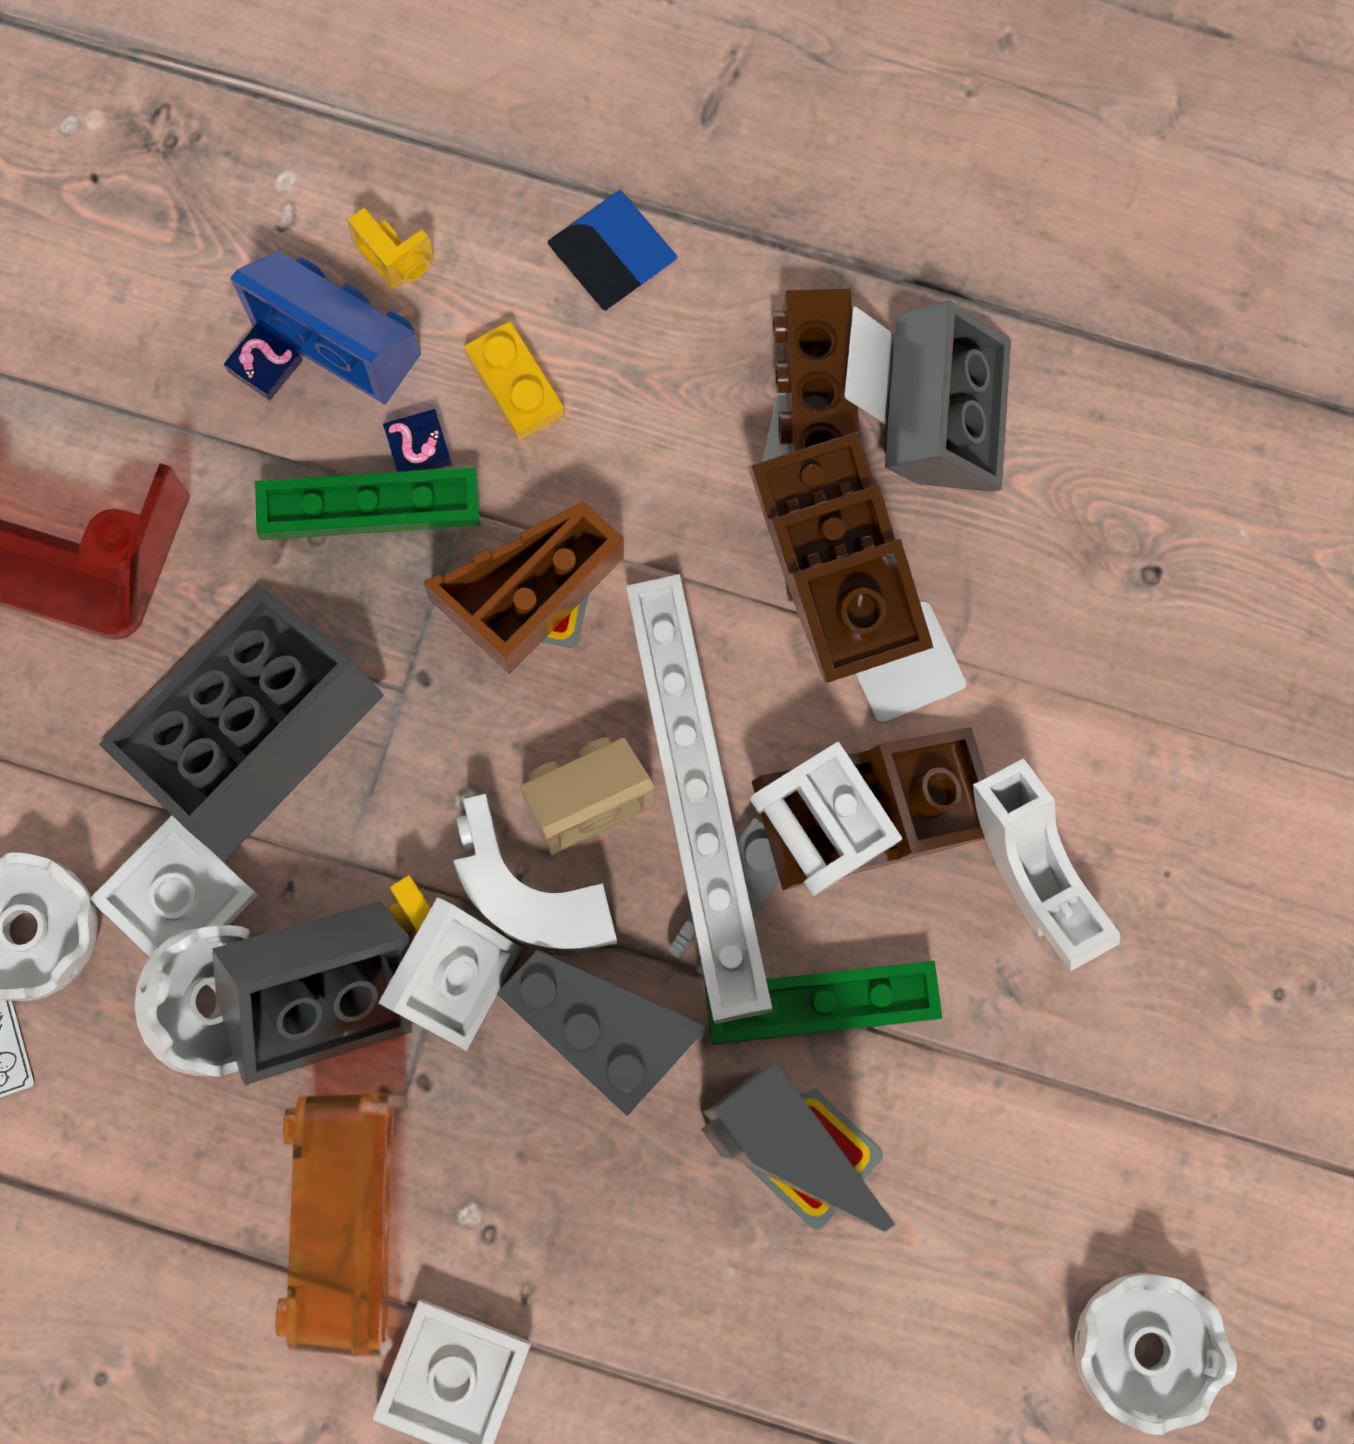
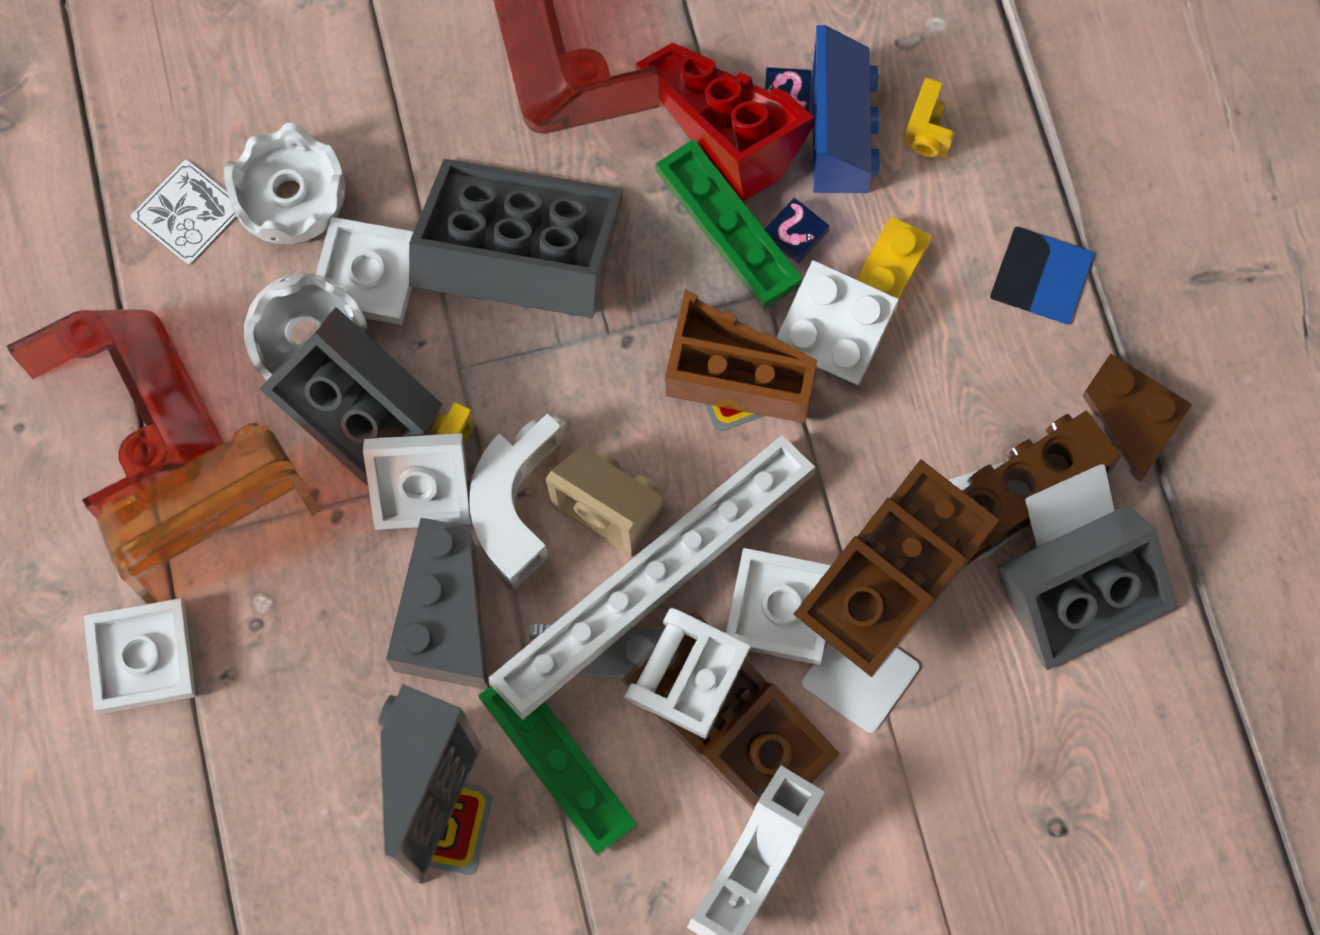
camera: 70 degrees right, 5 degrees down
(230, 1197) = (156, 379): none -> clear red windscreen
(267, 428) = (737, 125): none -> red wedge
(542, 462) = (837, 321): none -> white plate
(787, 698) = (764, 604): none -> white plate
(803, 254) = (1135, 412): none -> reddish brown wing

